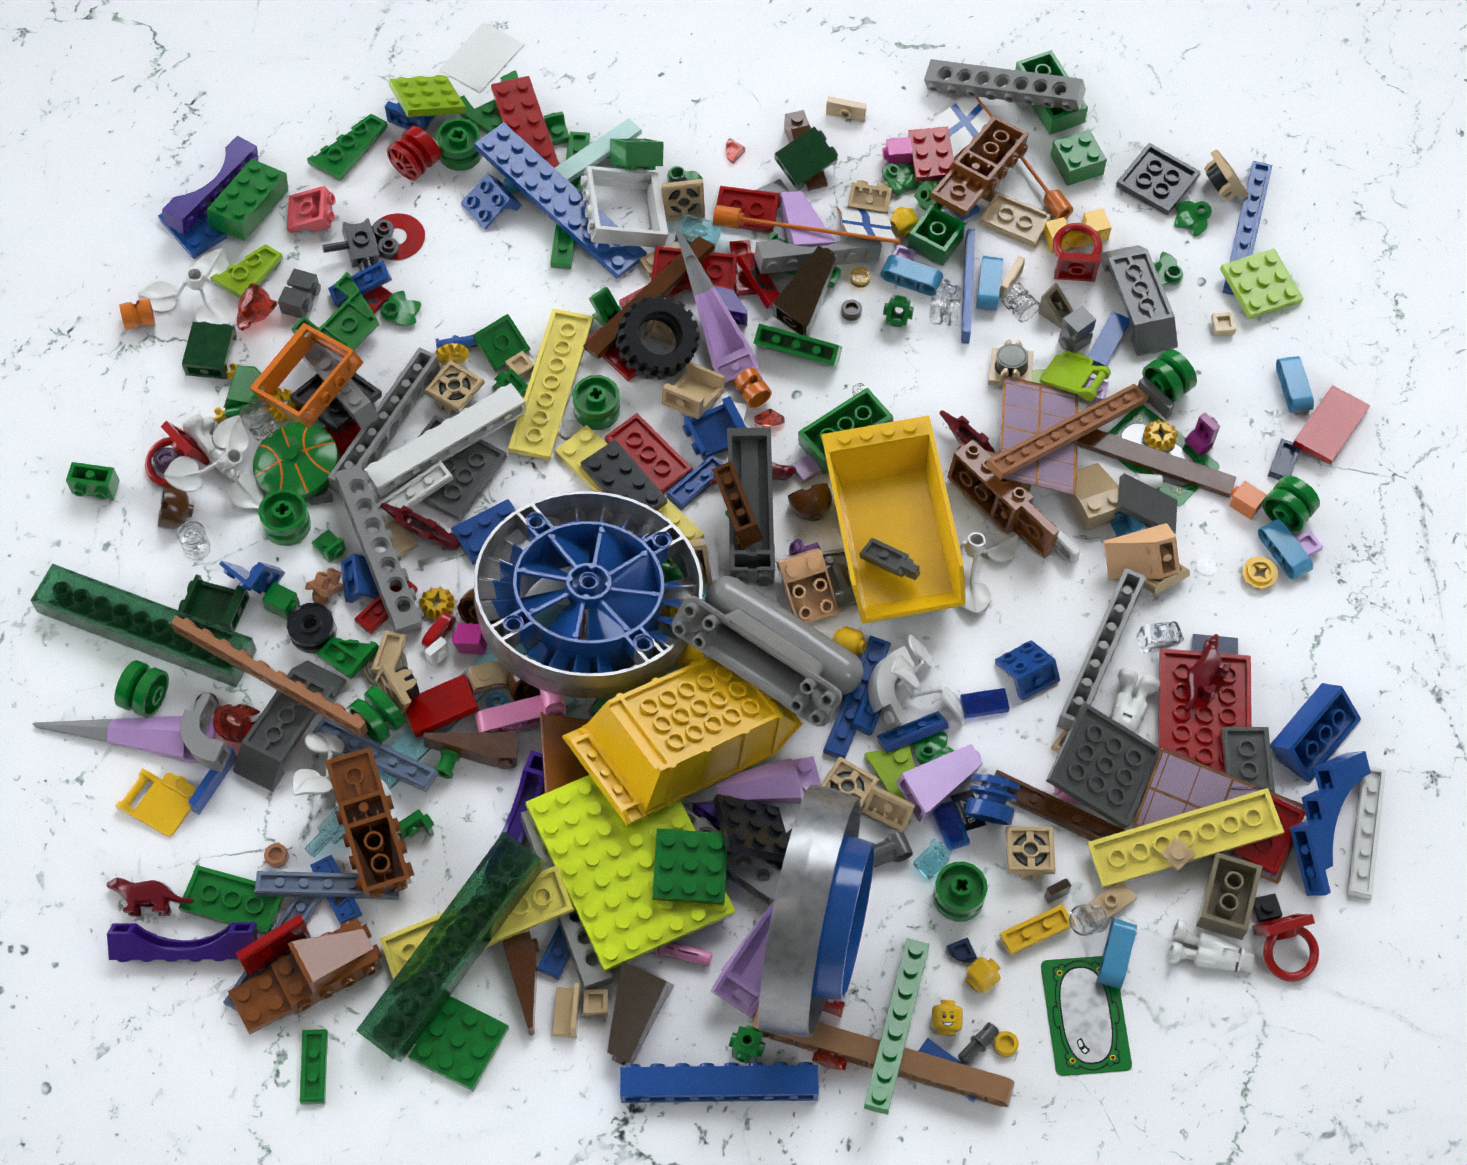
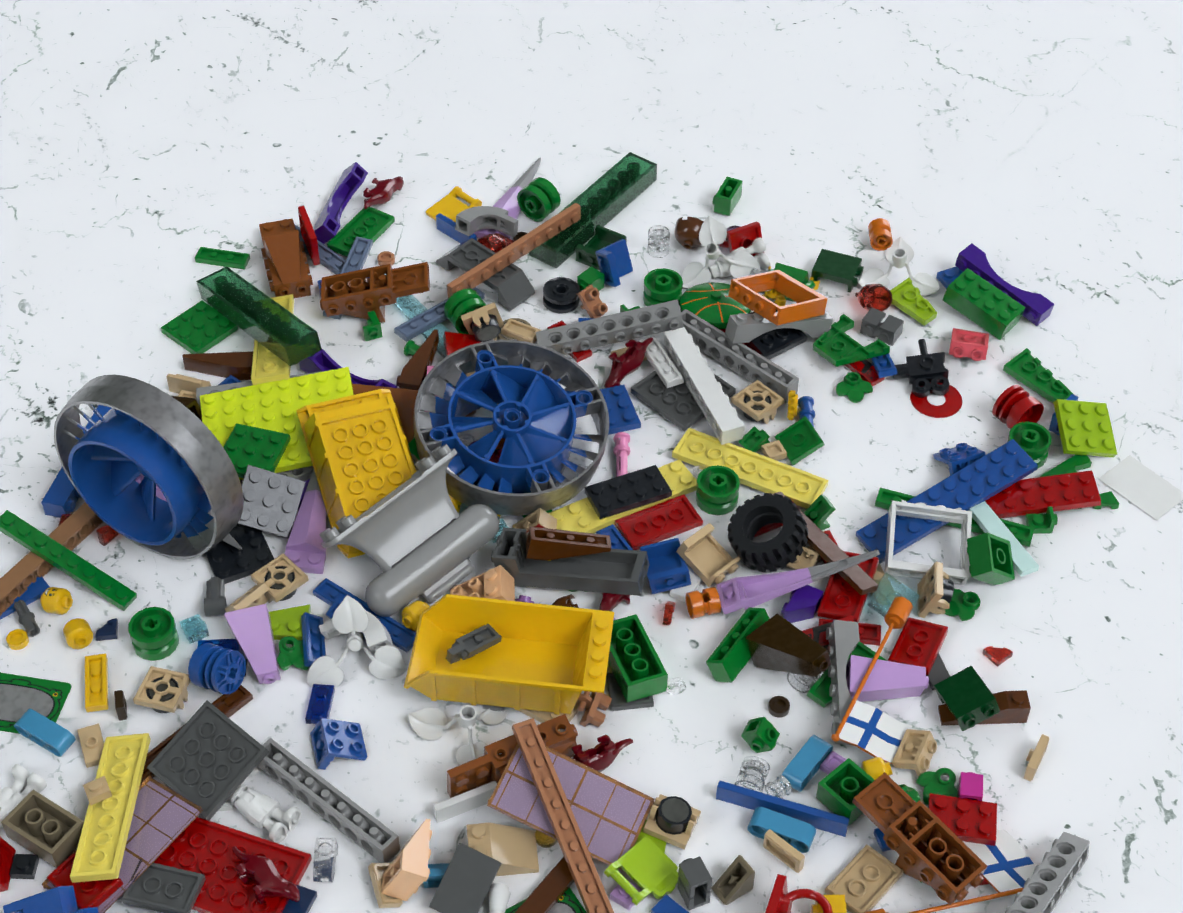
camera: 105 degrees right, 15 degrees down
(310, 782) = (411, 253): white plant -> none
(347, 655) = (529, 309): green wing -> none
(860, 277) = (817, 723): clear yellow tile -> none
(1021, 304) = (750, 846): clear wheel -> none
(1083, 920) = (80, 713): clear wheel -> none

